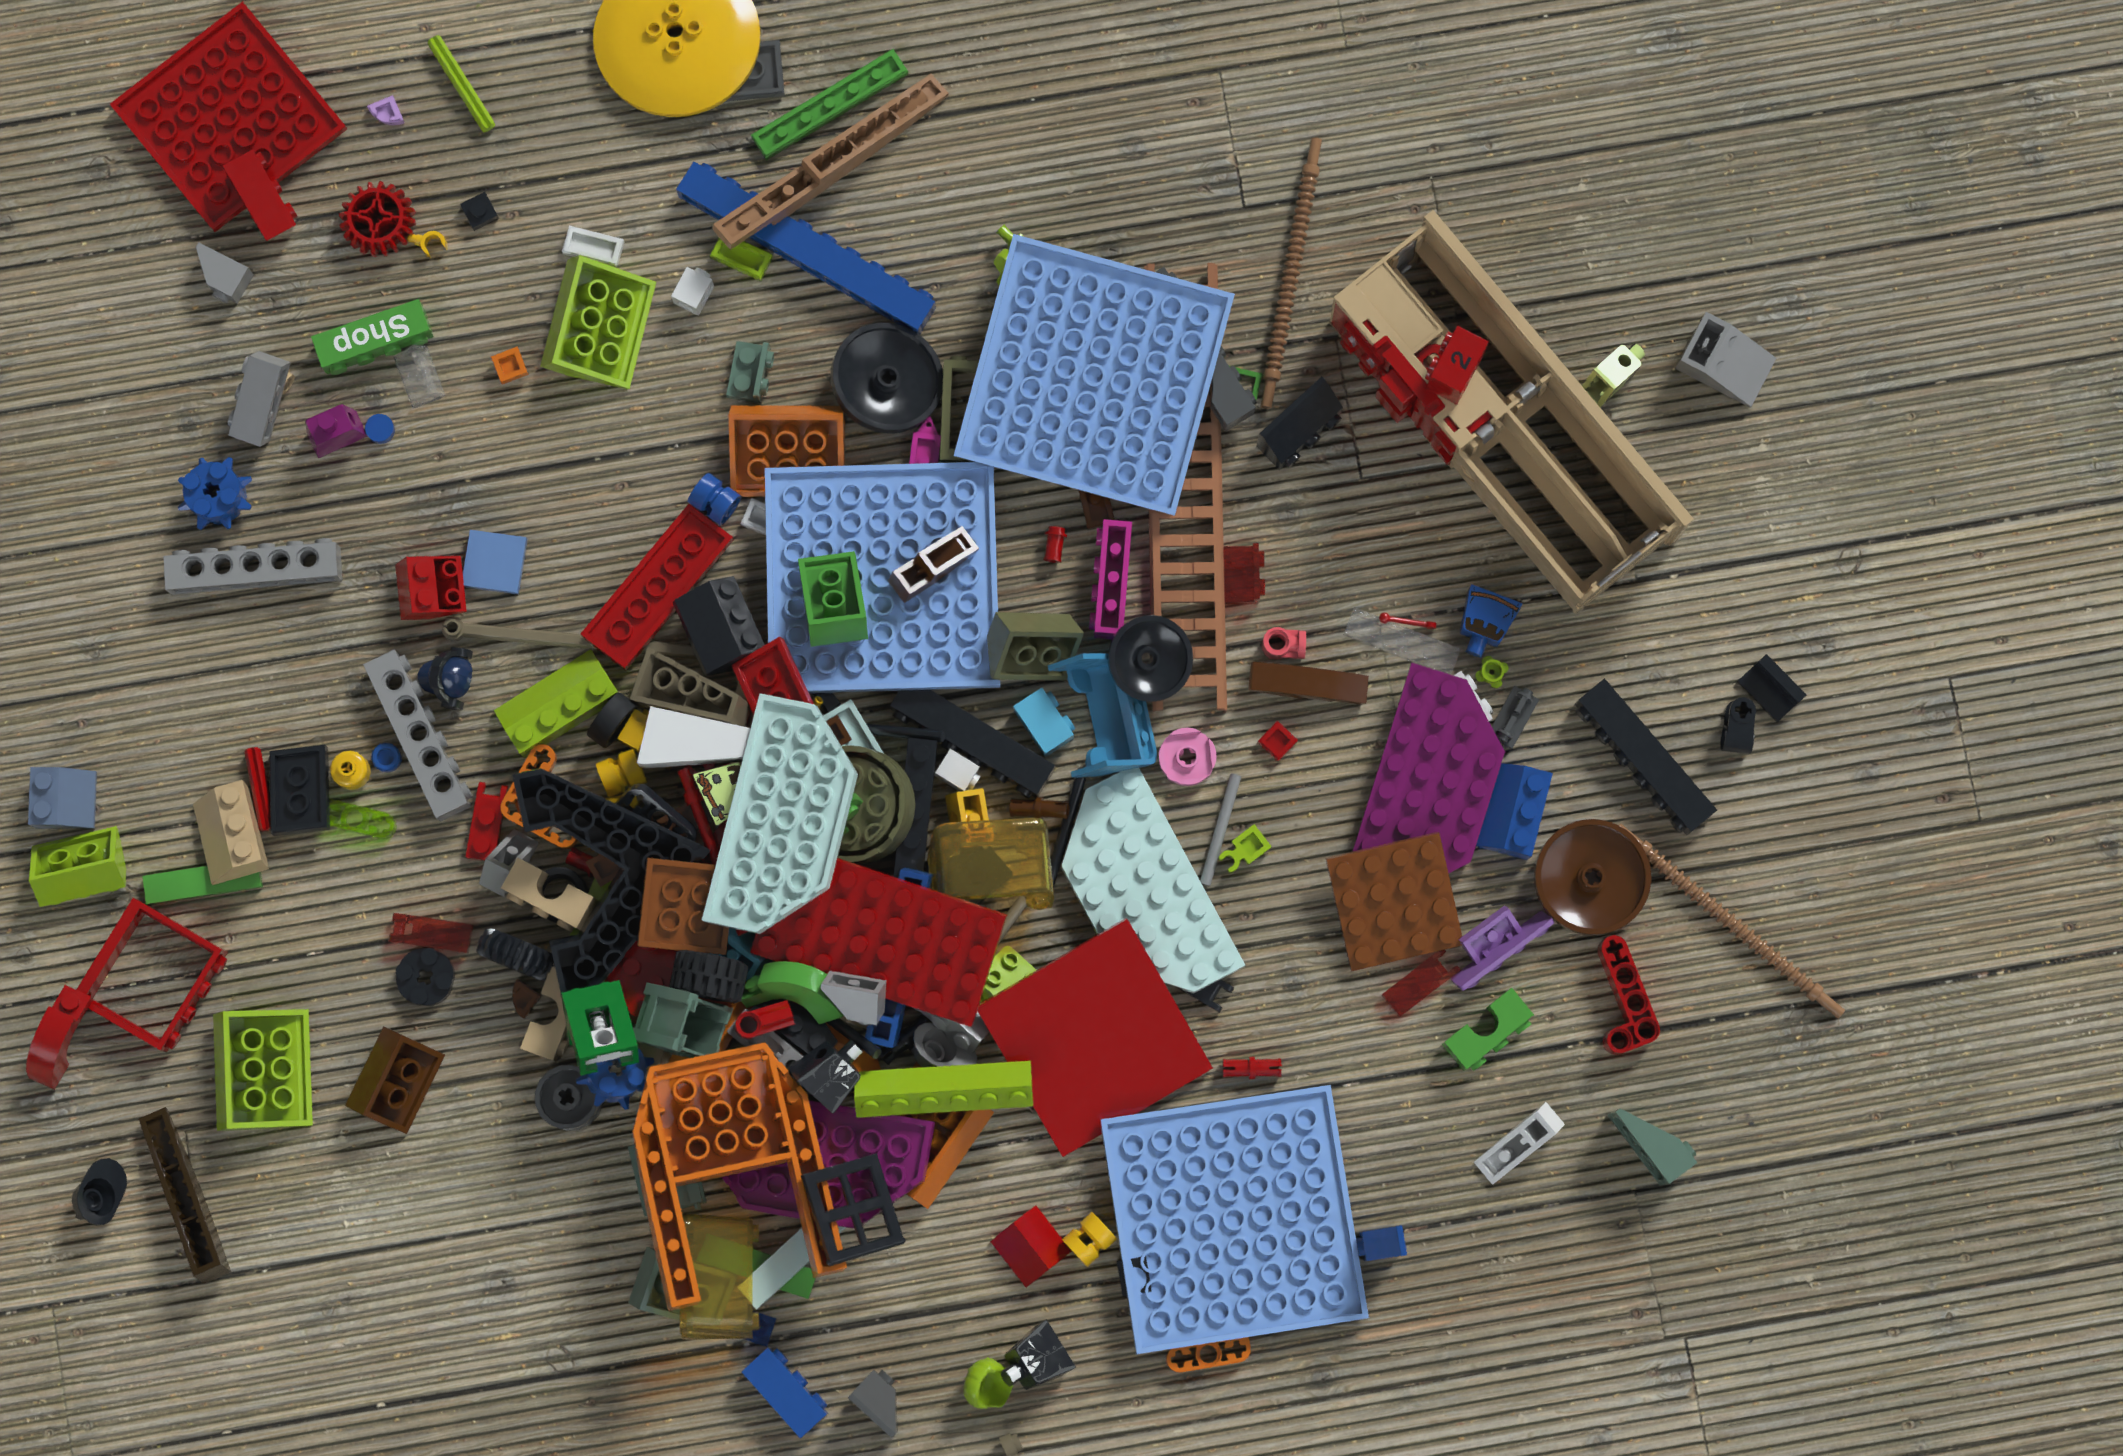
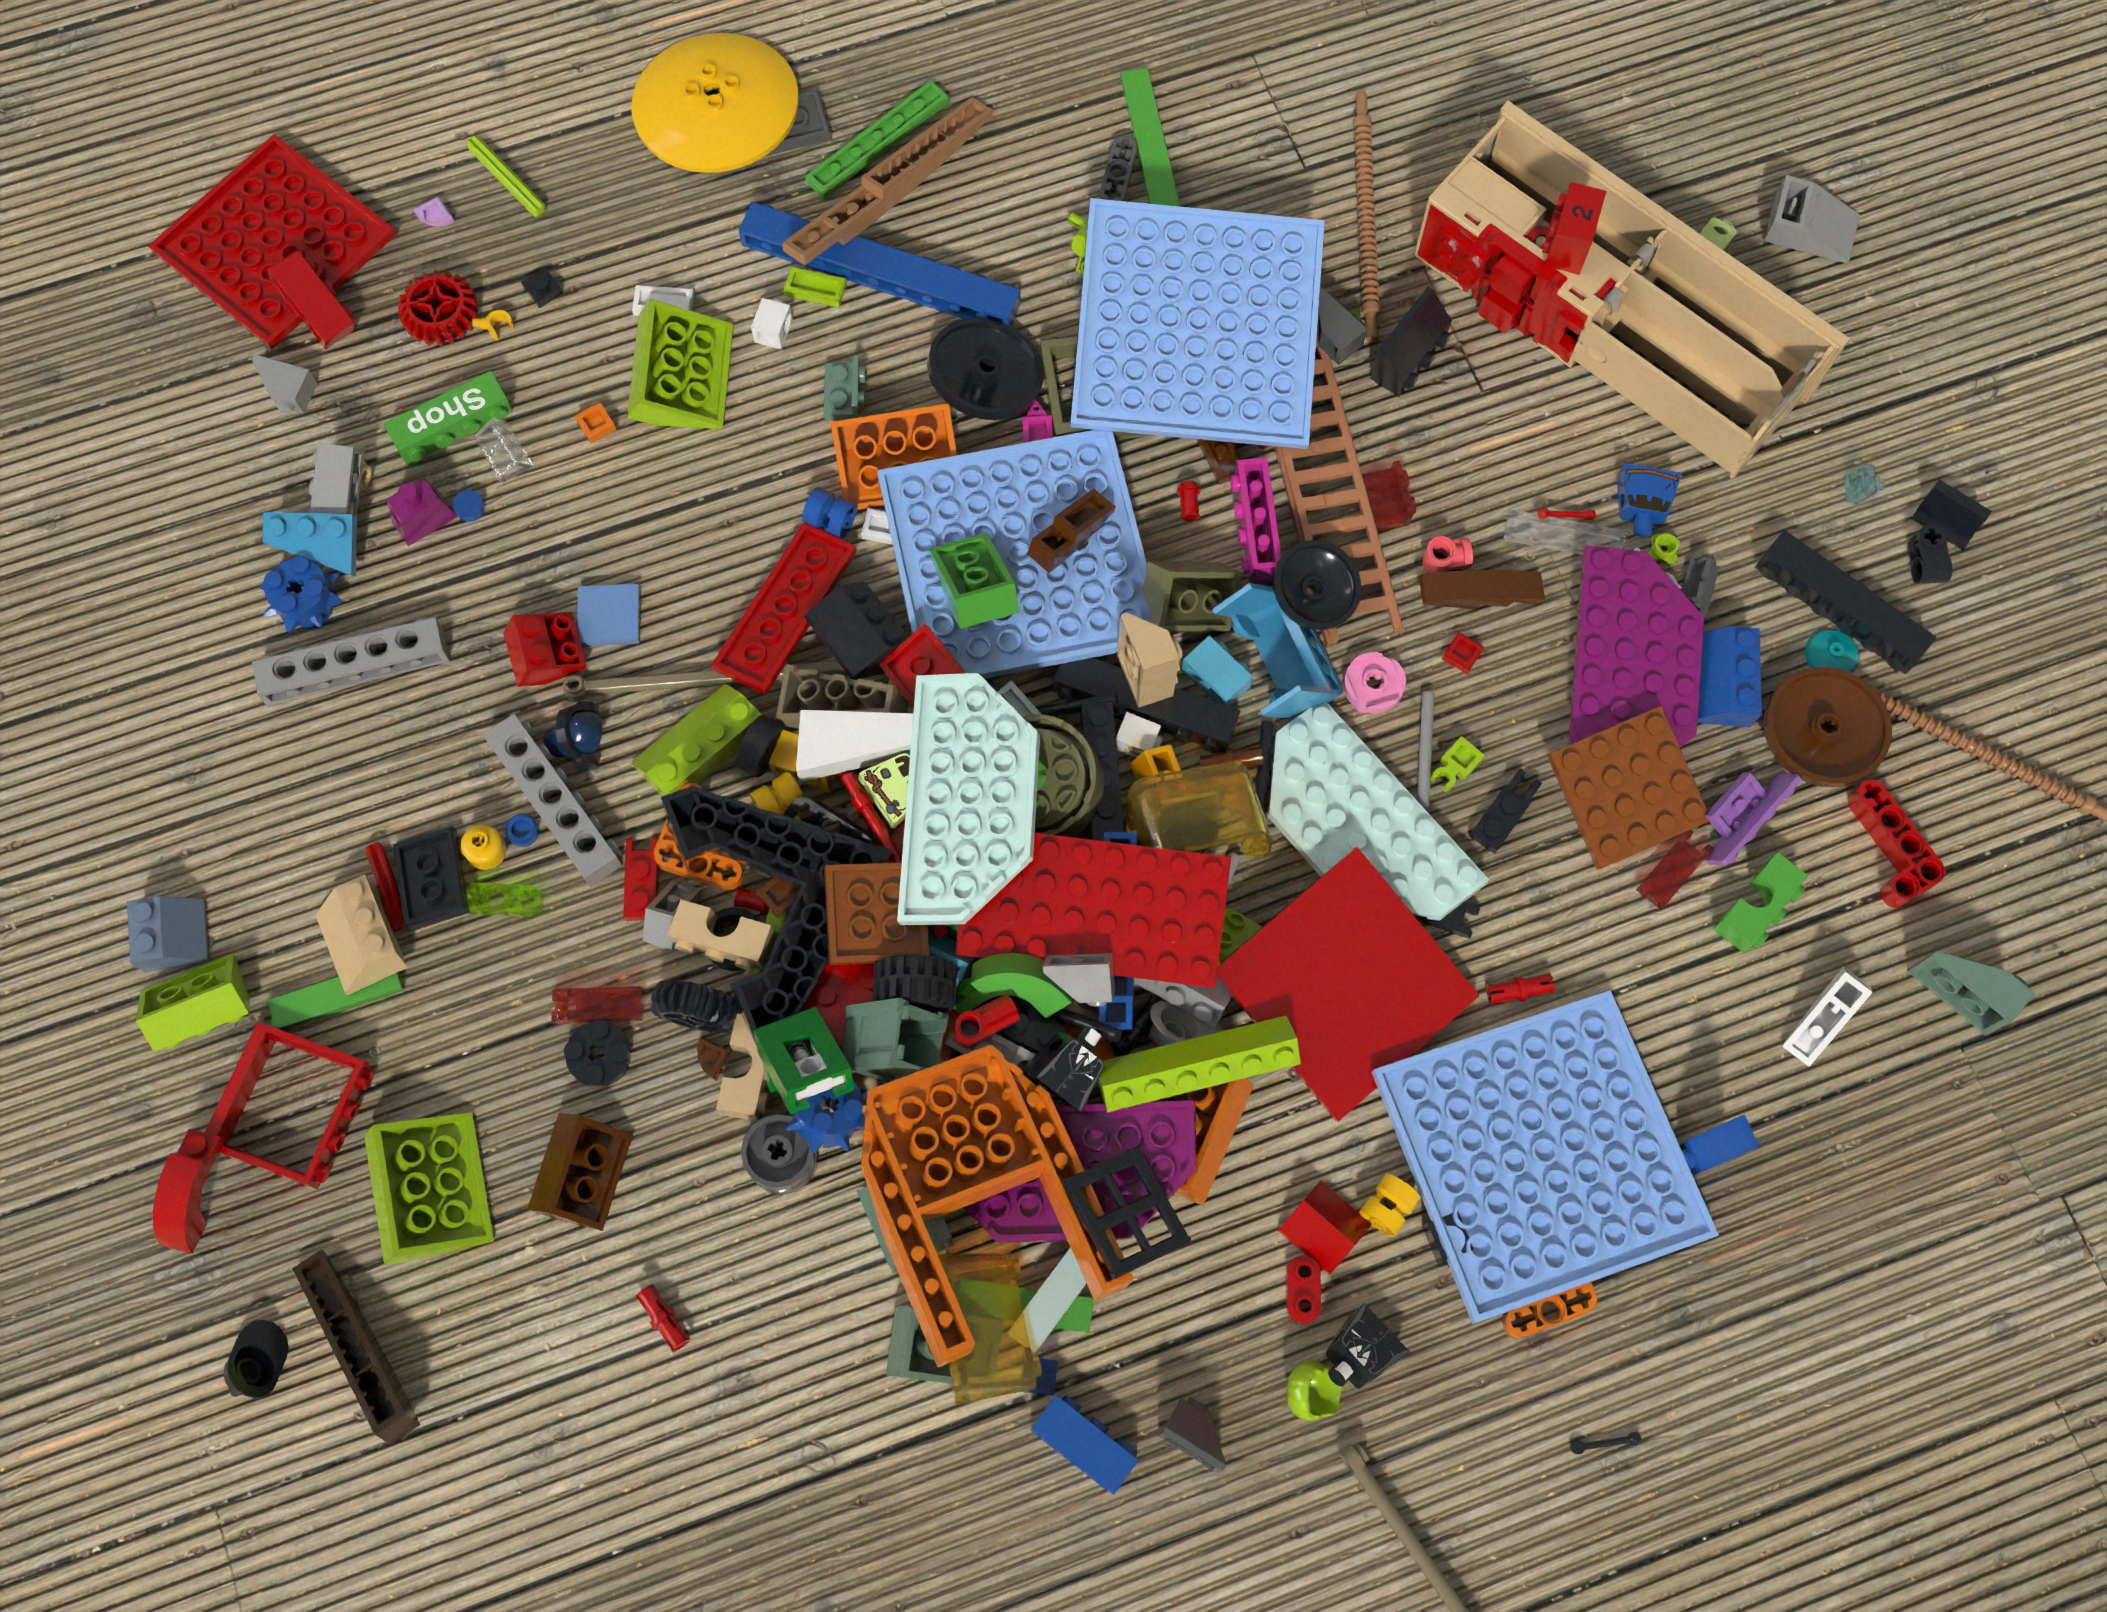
camera: 10 degrees left, 10 degrees down
(234, 442) = (317, 536): none -> dark azure wing
(447, 1219) = (662, 1318): none -> red pin
(975, 710) = (1148, 659): none -> tan slope
(999, 1296) = (1303, 1289): none -> red plate
(1043, 199) = (1114, 162): none -> dark grey beam
(1096, 156) = (1149, 137): none -> bright green tile
(1277, 903) = (1503, 814): none -> black hinge
(1623, 802) = (1832, 650): none -> teal piece
(1696, 642) = (1862, 483): none -> clear light blue tile

